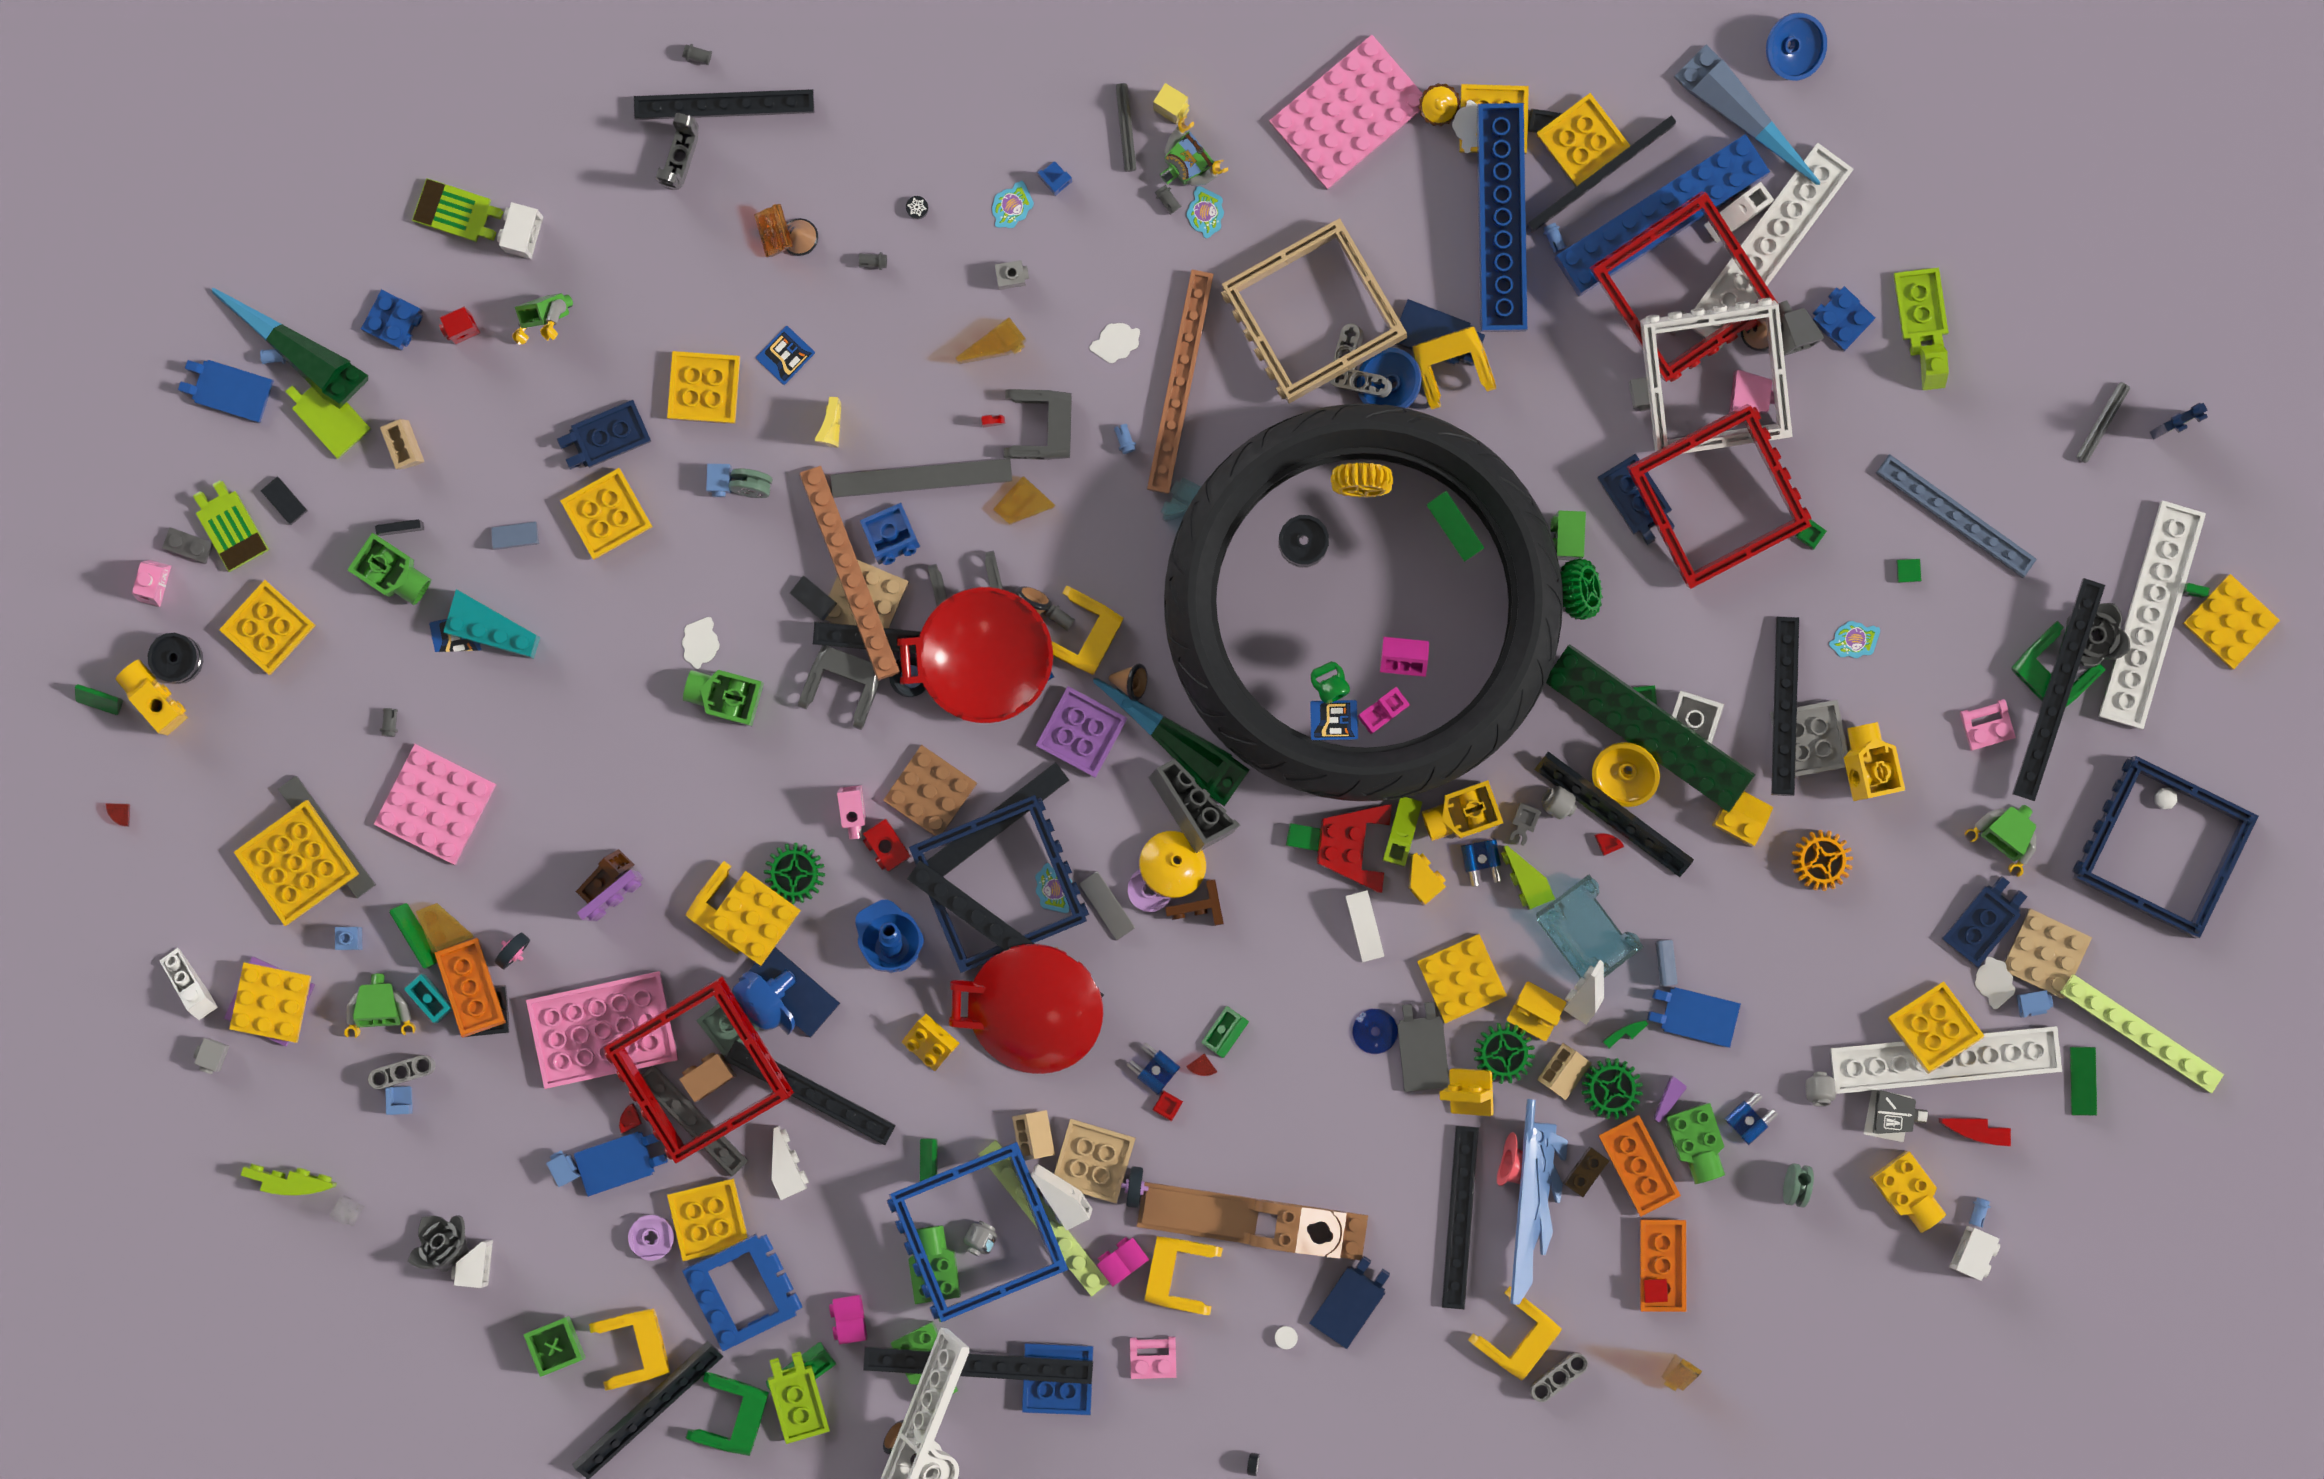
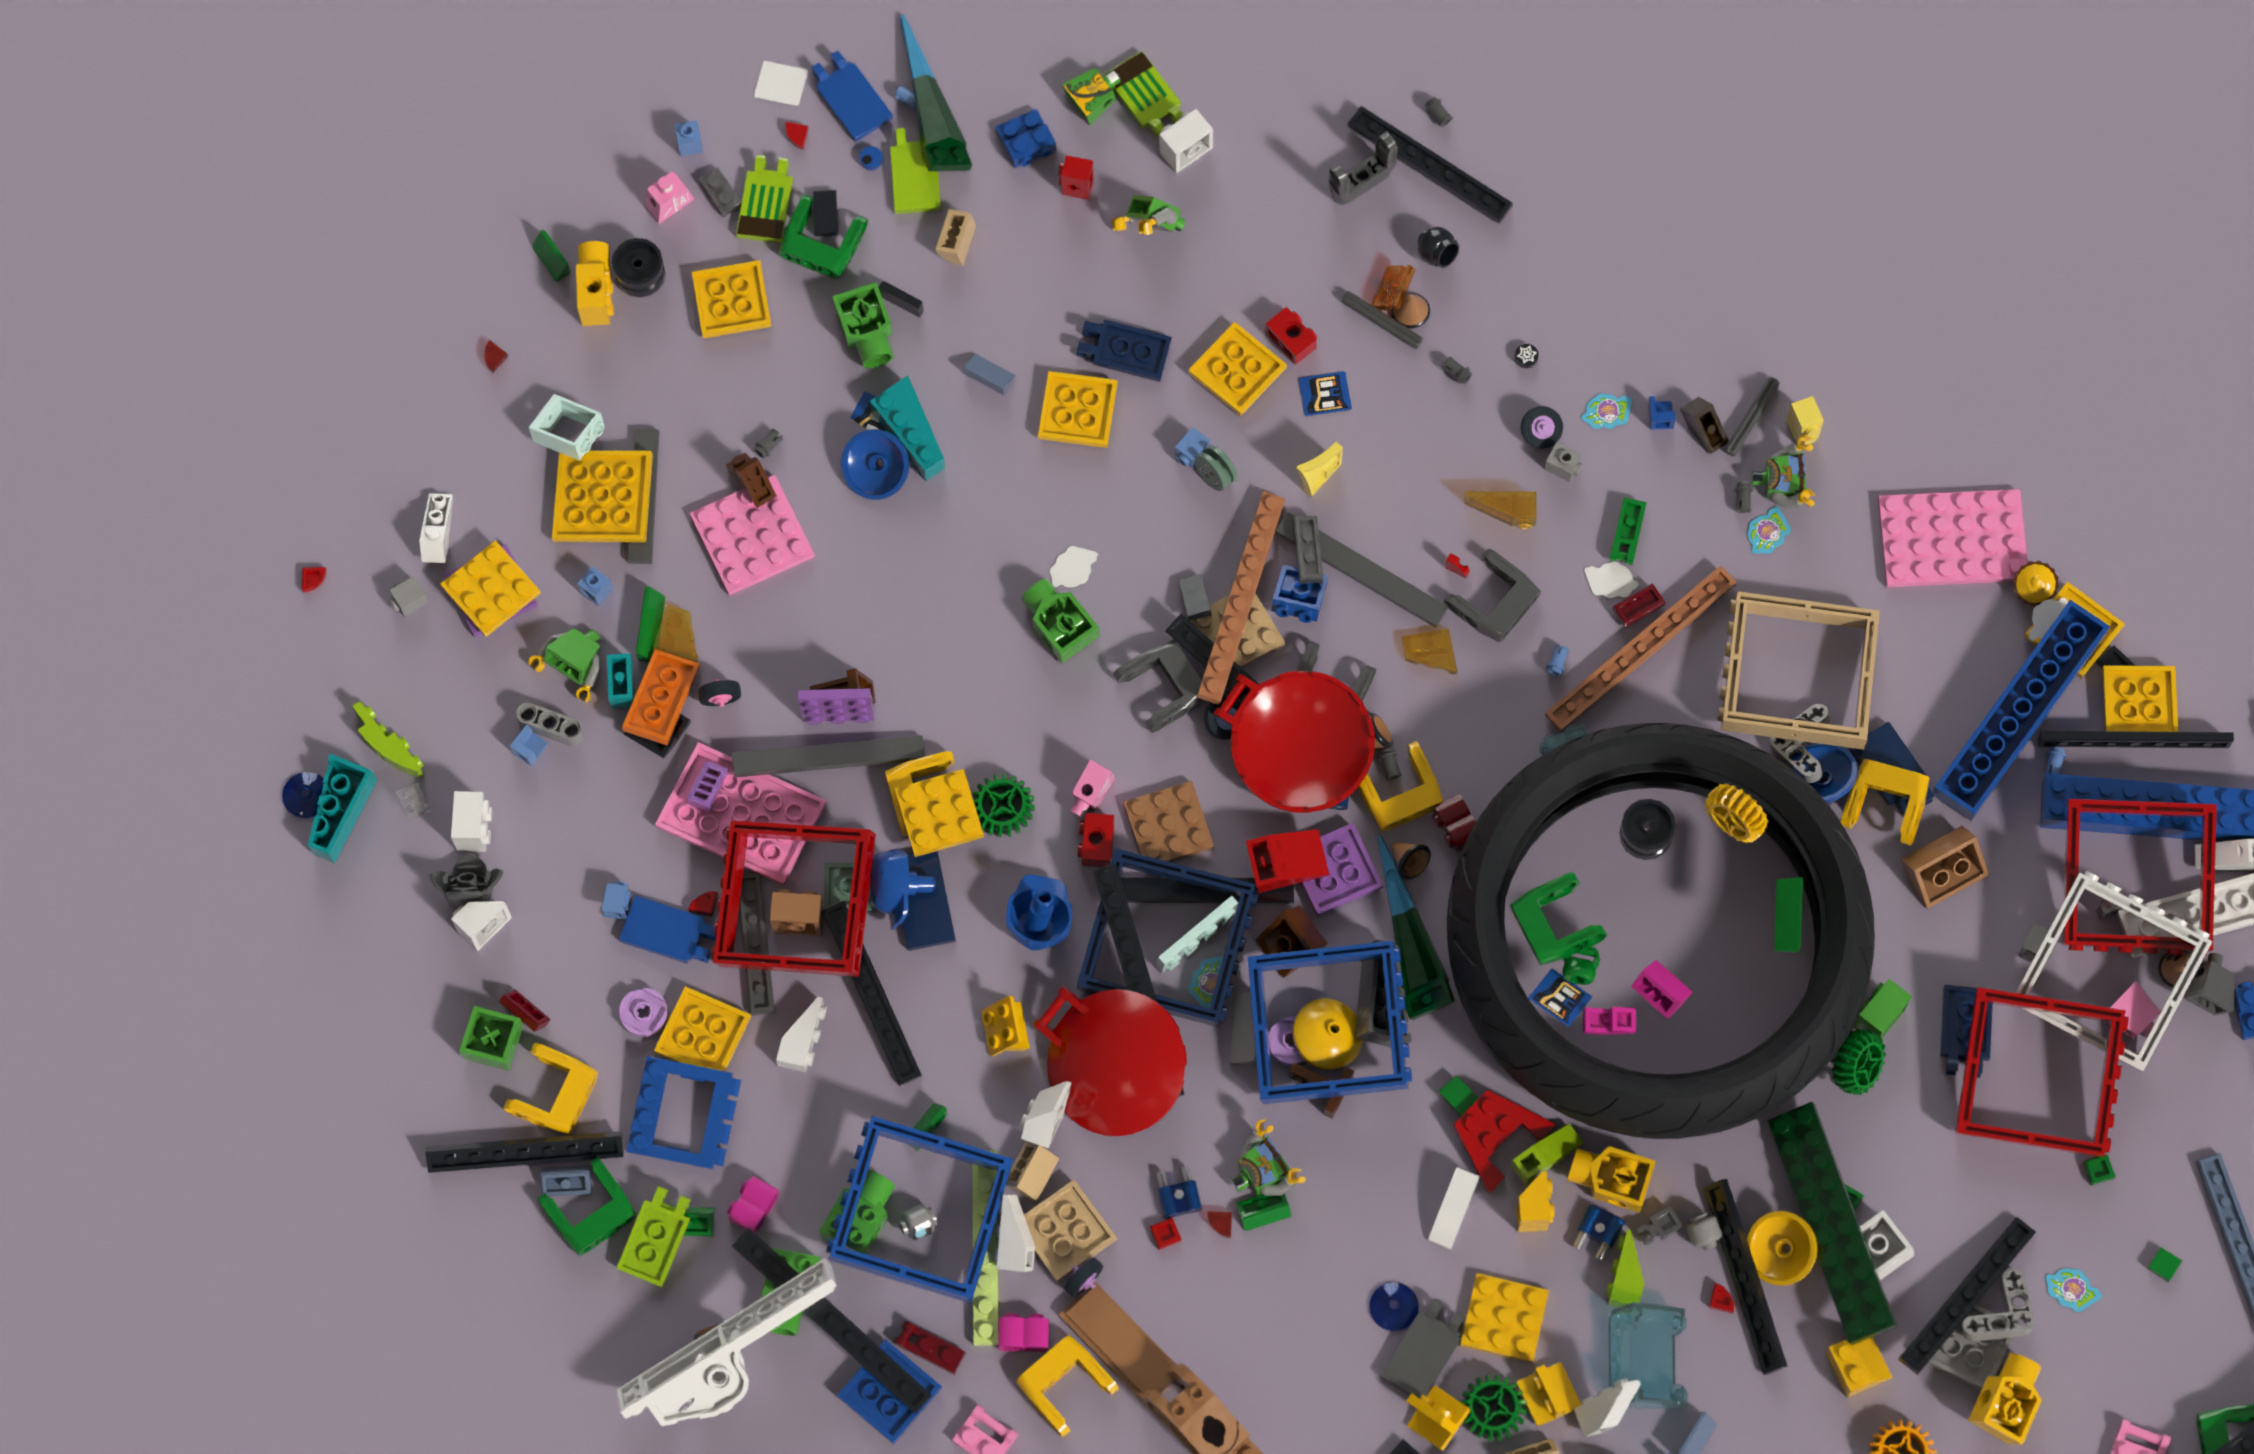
camera: 35 degrees right, 15 degrees down
(124, 1095) = (312, 577): none -> red tile
(128, 521) = (688, 138): none -> medium blue brick
(162, 418) = (780, 83): none -> white sticker
(204, 830) = (550, 416): none -> light aqua window
(209, 452) = (797, 134): none -> red tile
(270, 1262) = (301, 805): none -> clear blue dish
(283, 428) = (871, 158): none -> blue tile
(294, 1259) = (339, 806): none -> teal wedge
(301, 542) = (814, 254): none -> green connector
(400, 763) = (752, 478): none -> reddish brown bracket
(405, 1195) = (470, 821): none -> white brick
(415, 244) = (1092, 93): none -> torso
(486, 690) = (861, 467): none -> blue dish
(561, 1305) = (524, 1009): none -> dark red plate
(571, 1035) = (701, 803): none -> medium lavender slope
(633, 935) = (827, 756): none -> dark grey tile
(694, 1406) = (566, 1181): none -> sand blue slope
(734, 337) = (1294, 347): none -> red brick
(783, 171) = (1437, 247): none -> black piece
(783, 262) = (1382, 320): none -> dark grey axle
(870, 495) = (1308, 549): none -> flat silver tile
(973, 259) = (1541, 427): none -> black wheel
(1013, 1089) = (1045, 1115): none -> white slope
(1022, 855) = (1191, 940): none -> light aqua plate
(1042, 754) = (1287, 859): none -> red slope
(1061, 1323) = (930, 1348): none -> dark red plate
(1091, 813) = (1290, 933): none -> reddish brown slope
(1095, 162) = (1705, 424): none -> dark brown slope
(1100, 293) = (1628, 530): none -> green plate
(1144, 625) = (1455, 820): none -> dark red brick
(1153, 348) = (1638, 605): none -> dark red plate
(1202, 1001) = (1264, 1166): none -> torso
(1209, 809) = (1397, 1026): none -> blue window
(1279, 681) = (1537, 930): none -> green connector
(1532, 383) = (1945, 866): none -> medium nougat slope
(1829, 695) = (2013, 1313): none -> light grey beam

